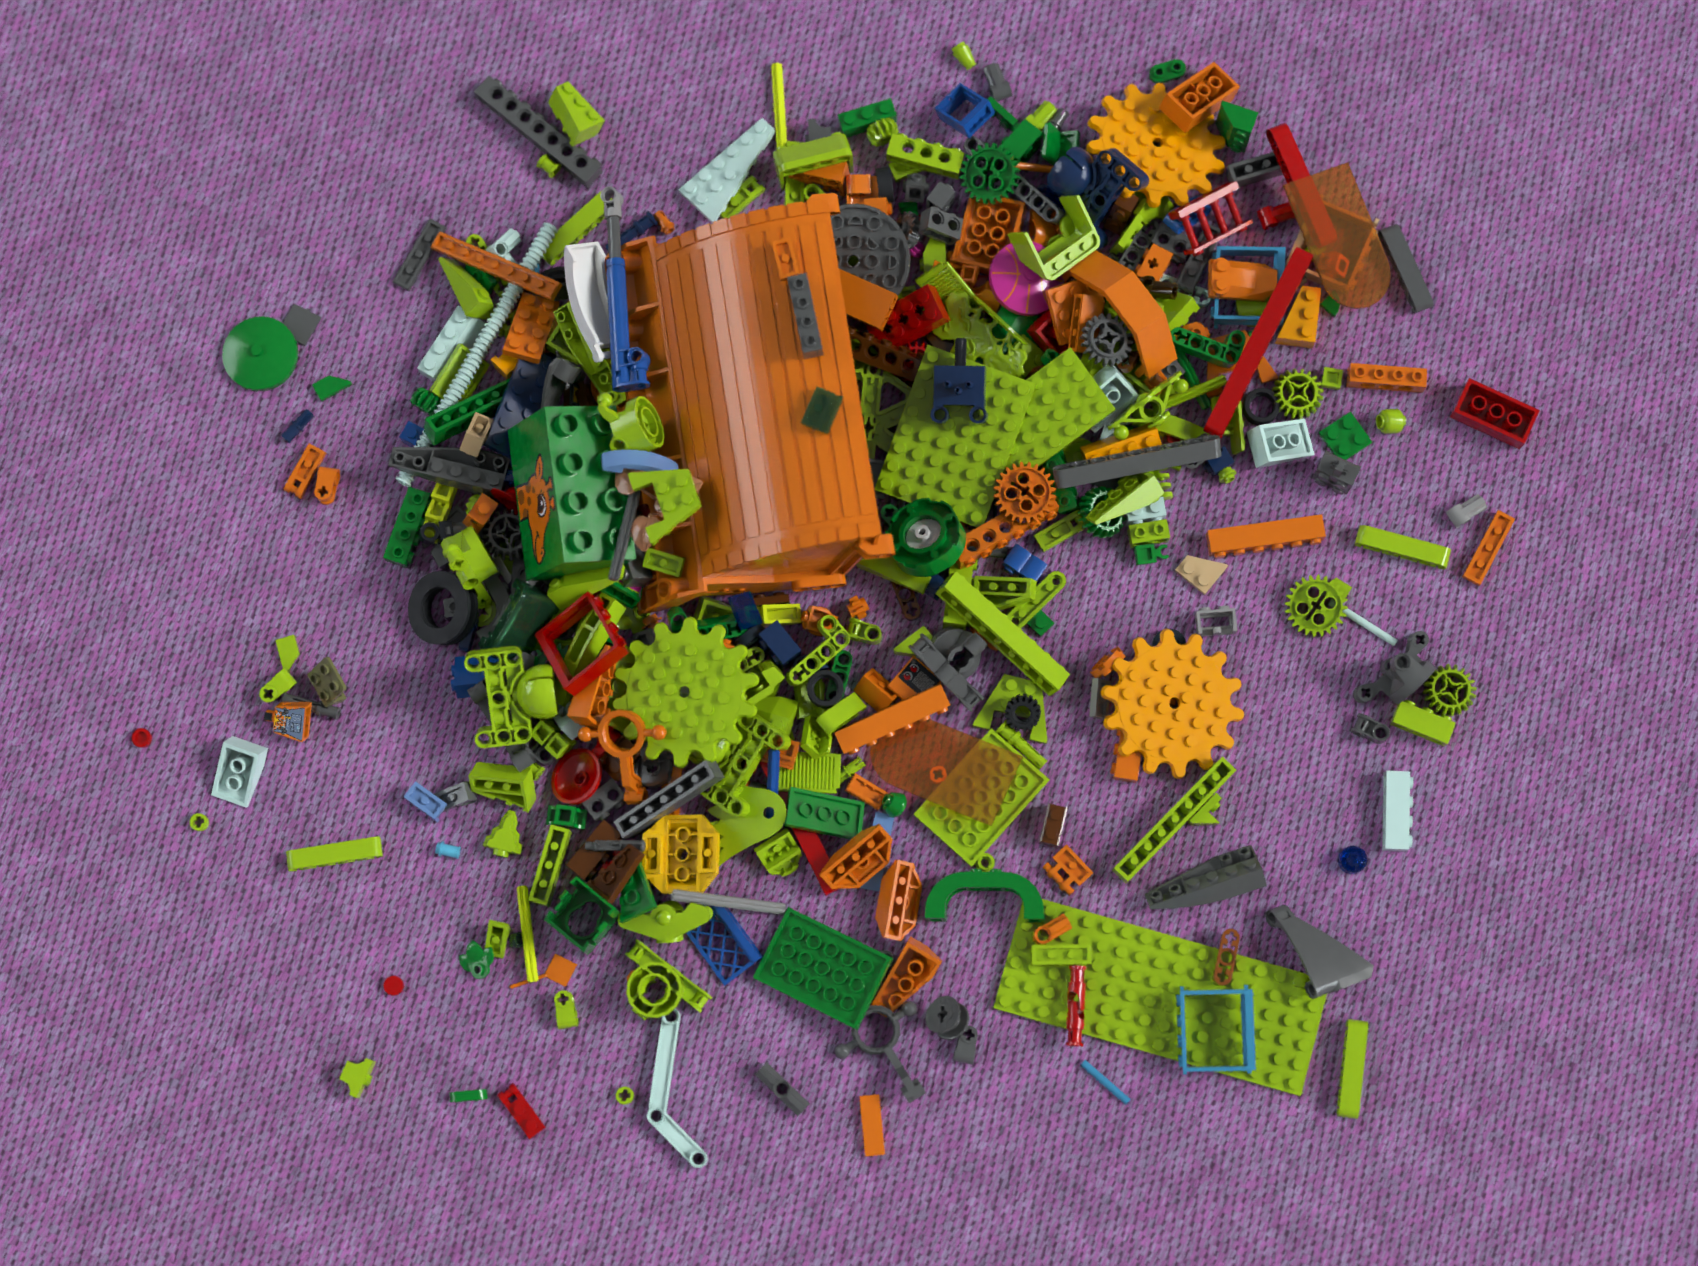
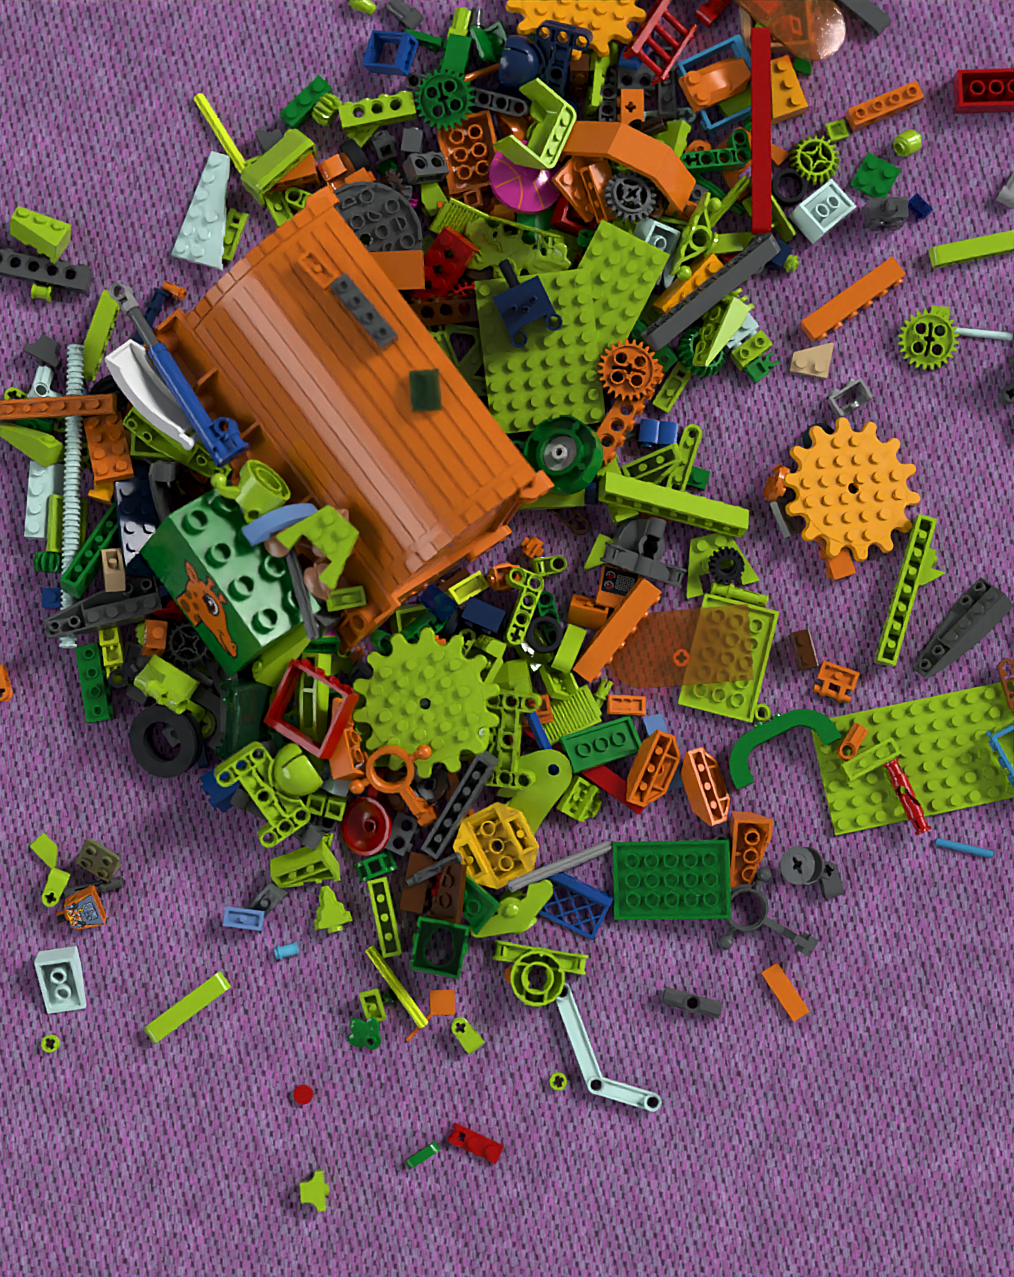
camera: 35 degrees left, 5 degrees up
(523, 218) = (45, 351): none -> dark grey brick
(894, 804) = (657, 703): green cone -> none
(1372, 484) = (919, 206): none -> clear blue piece

